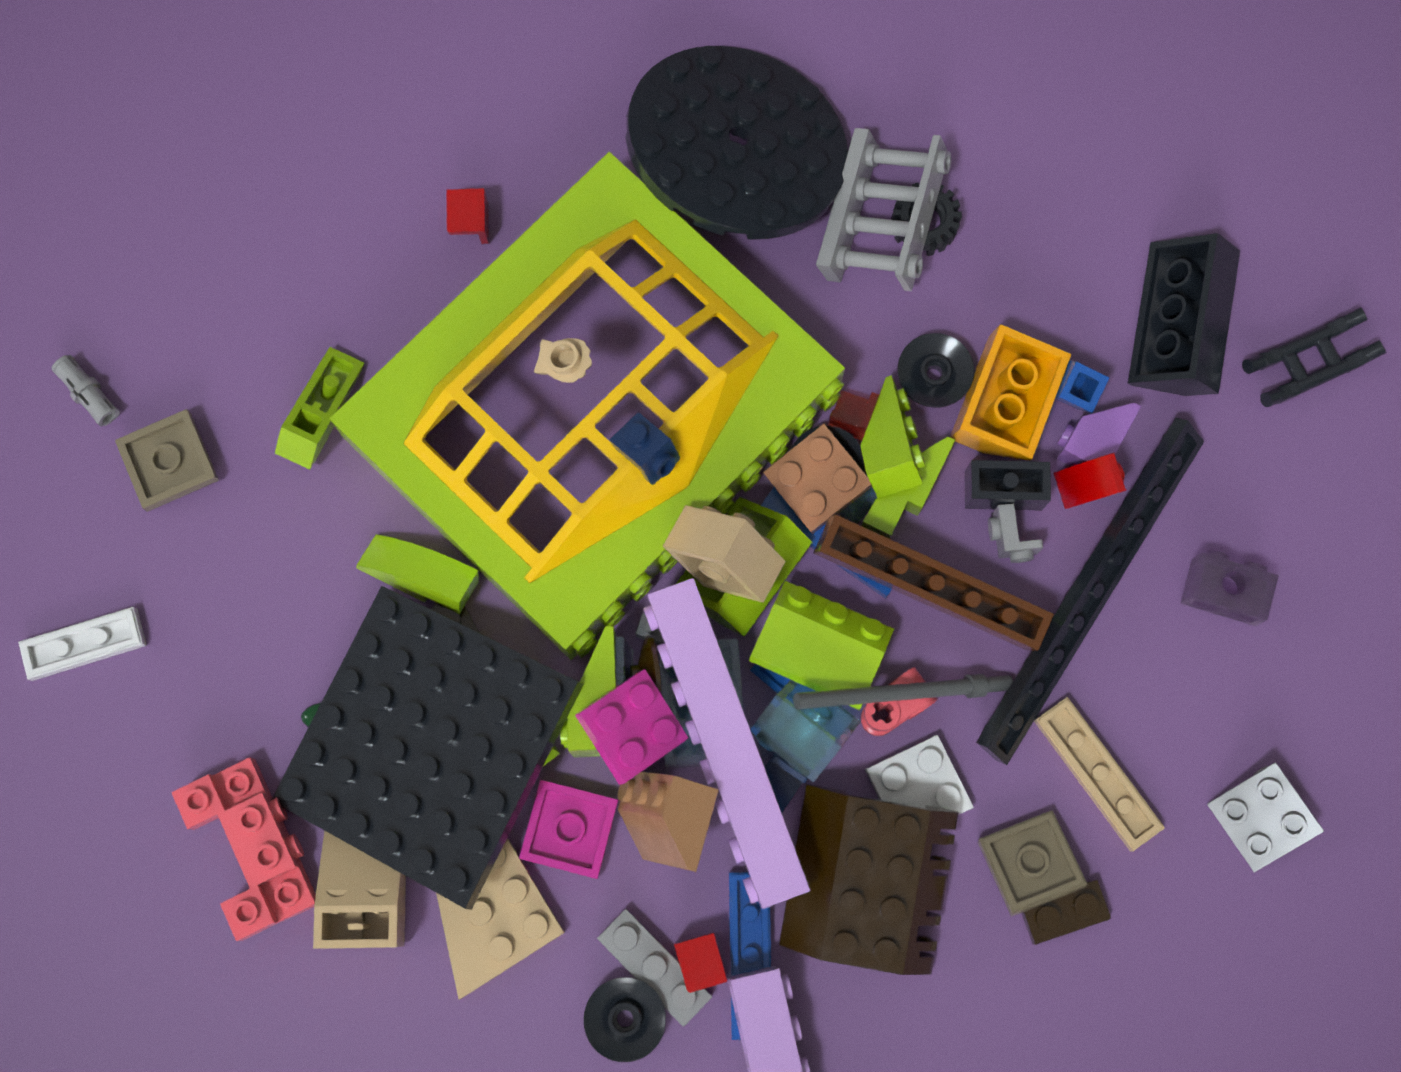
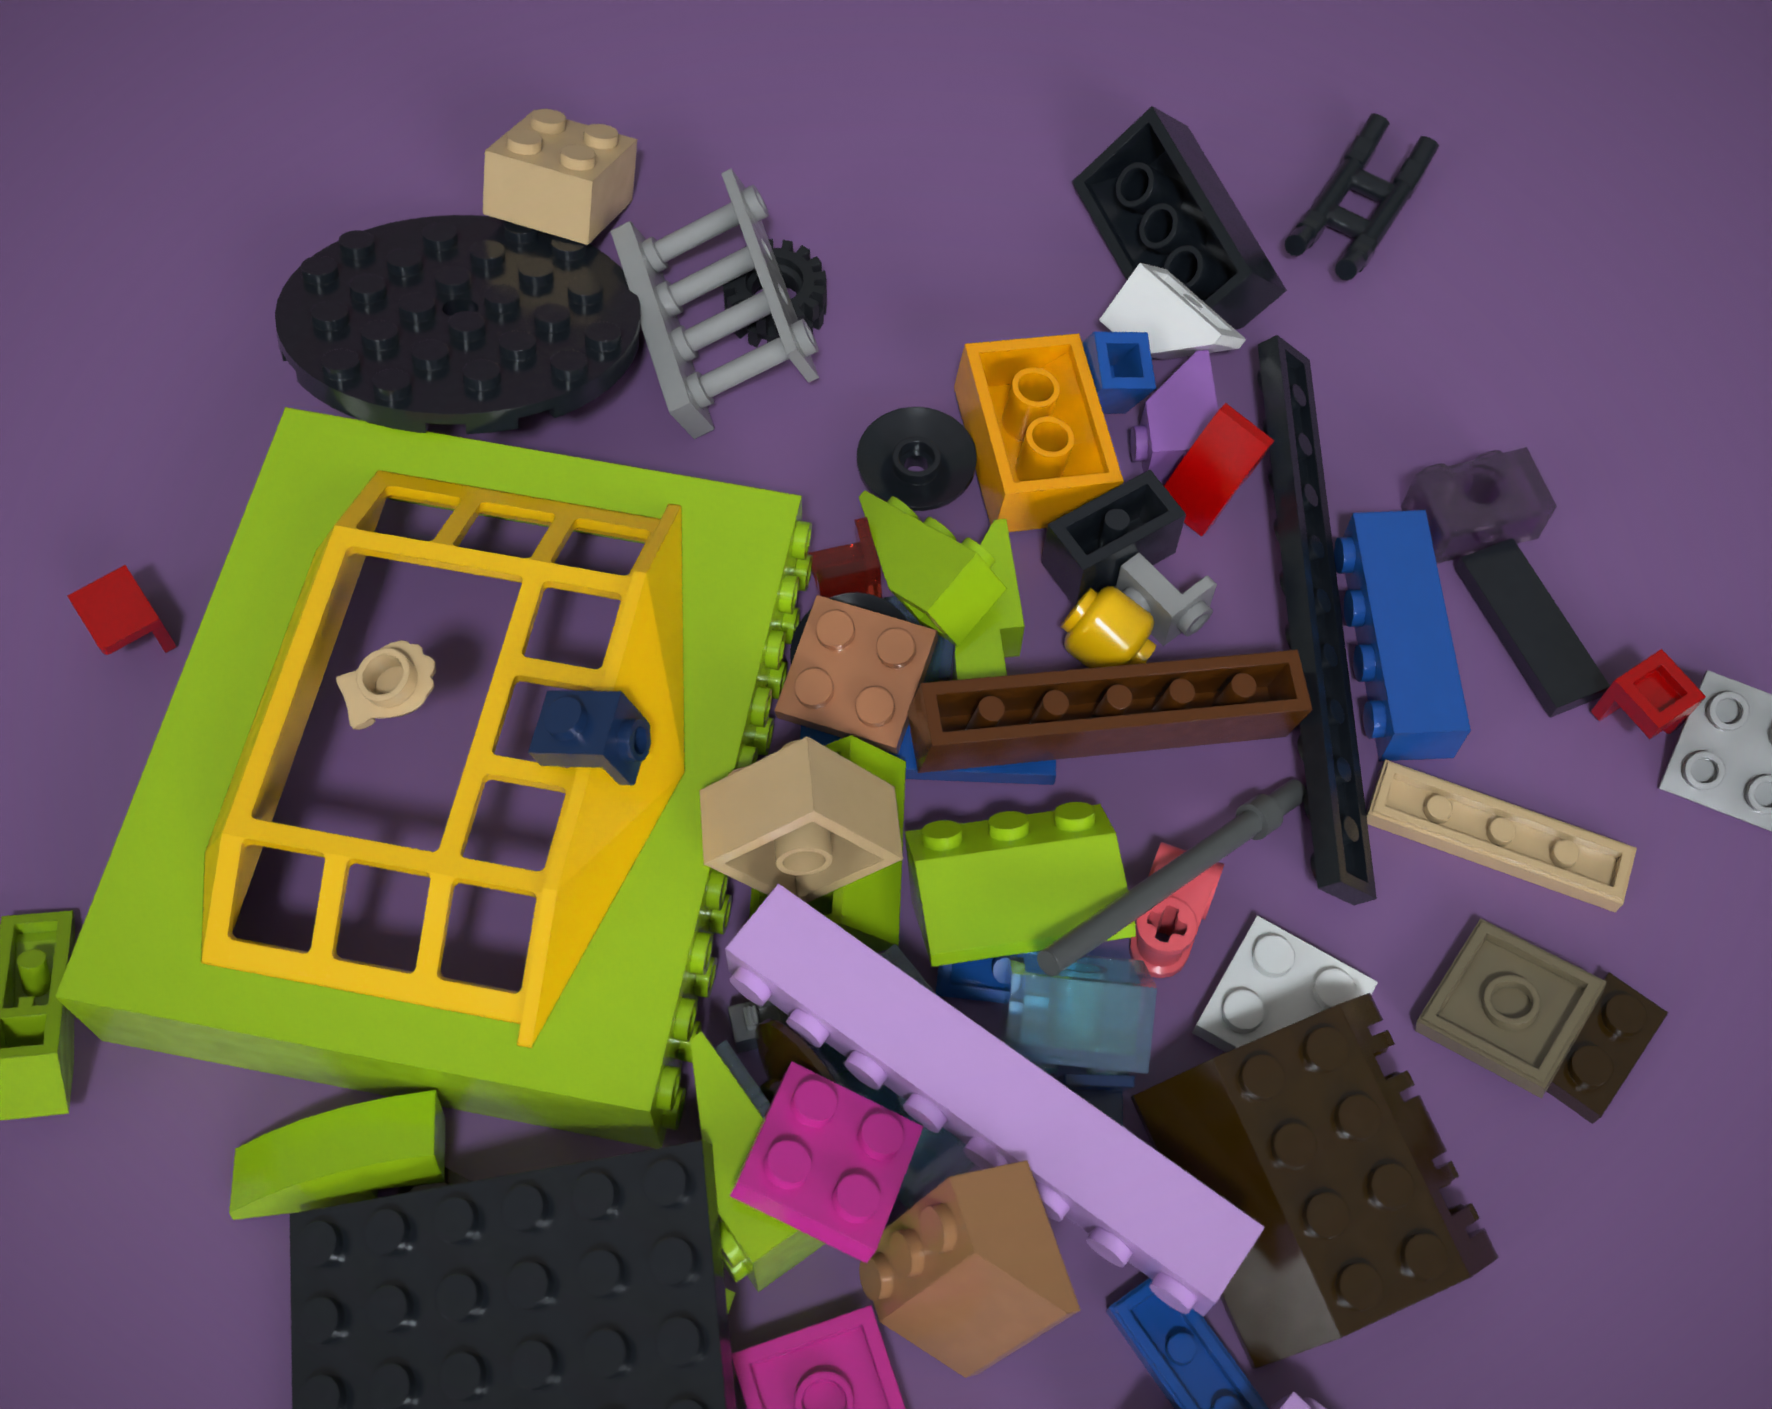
camera: 35 degrees left, 15 degrees down
(848, 74) = (559, 175): none -> tan brick
(969, 536) = (1108, 629): none -> yellow head
(1128, 634) = (1401, 636): none -> blue brick
(1134, 371) = (1170, 313): none -> white slope
(1207, 674) = (1532, 627): none -> black tile
(1234, 756) = (1652, 695): none -> red panel

